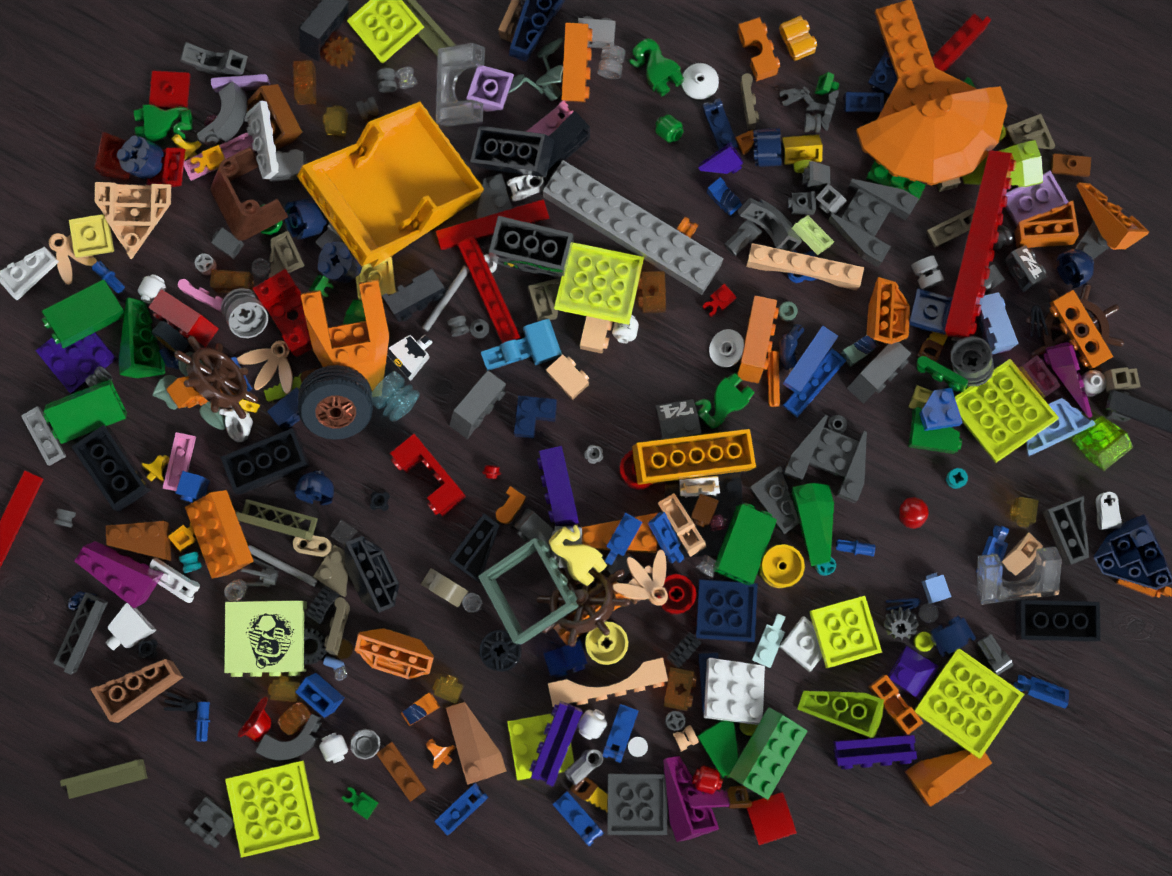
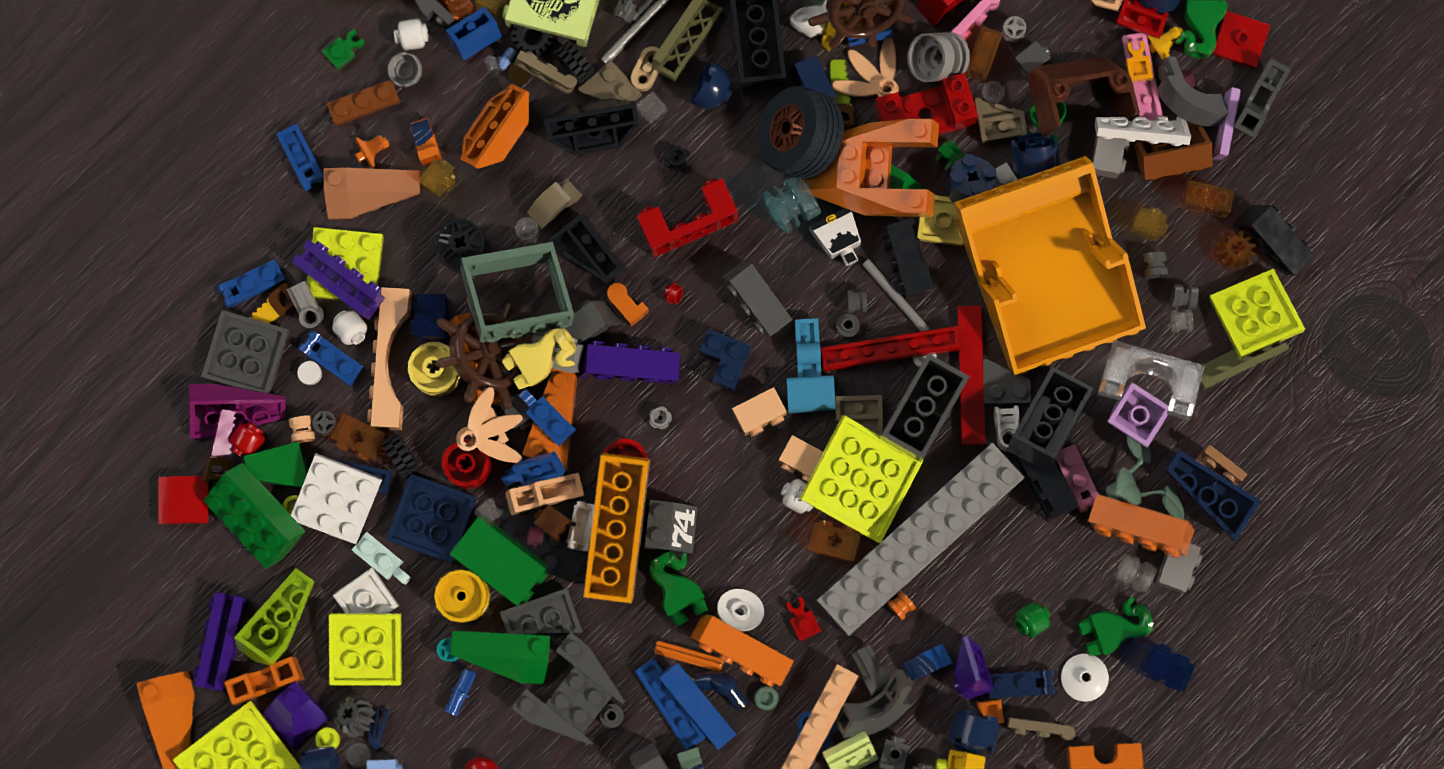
camera: 105 degrees right, 0 degrees up
(675, 22) = (1166, 667): none -> clear blue brick

